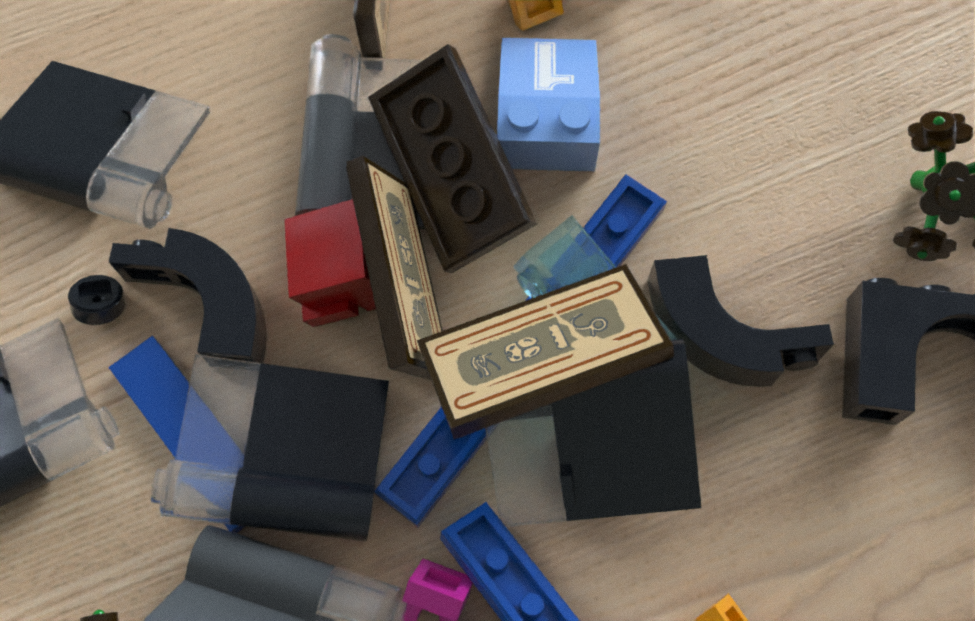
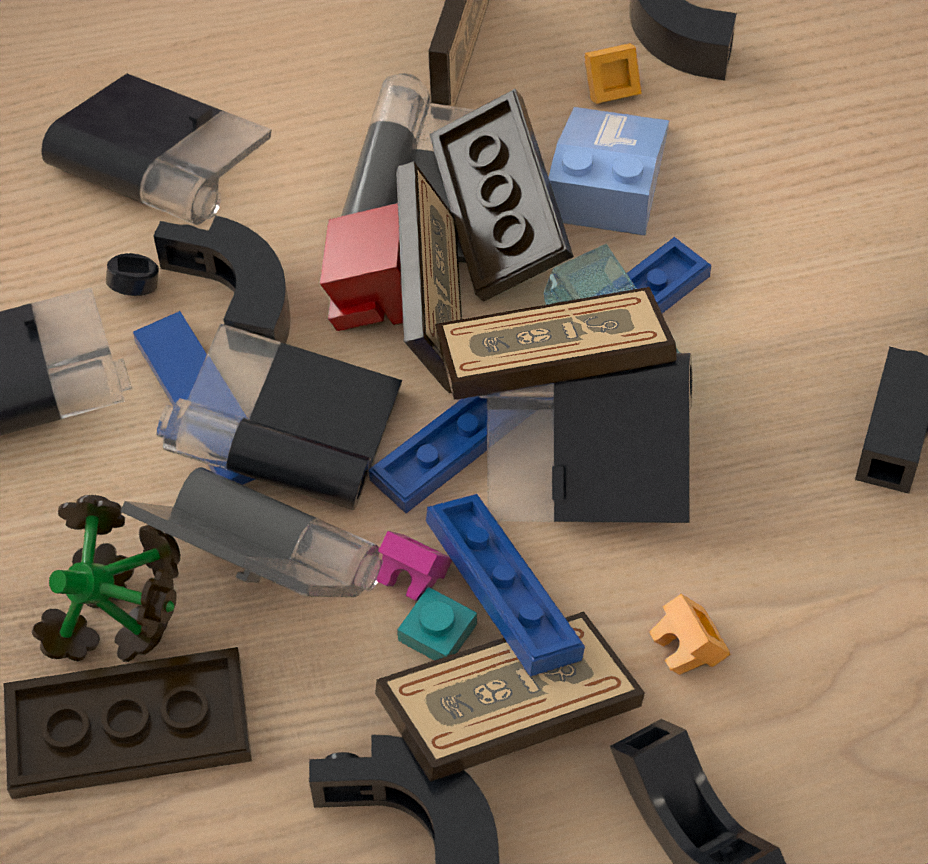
camera: 10 degrees right, 15 degrees down
(718, 342) = (746, 393): black arch -> none

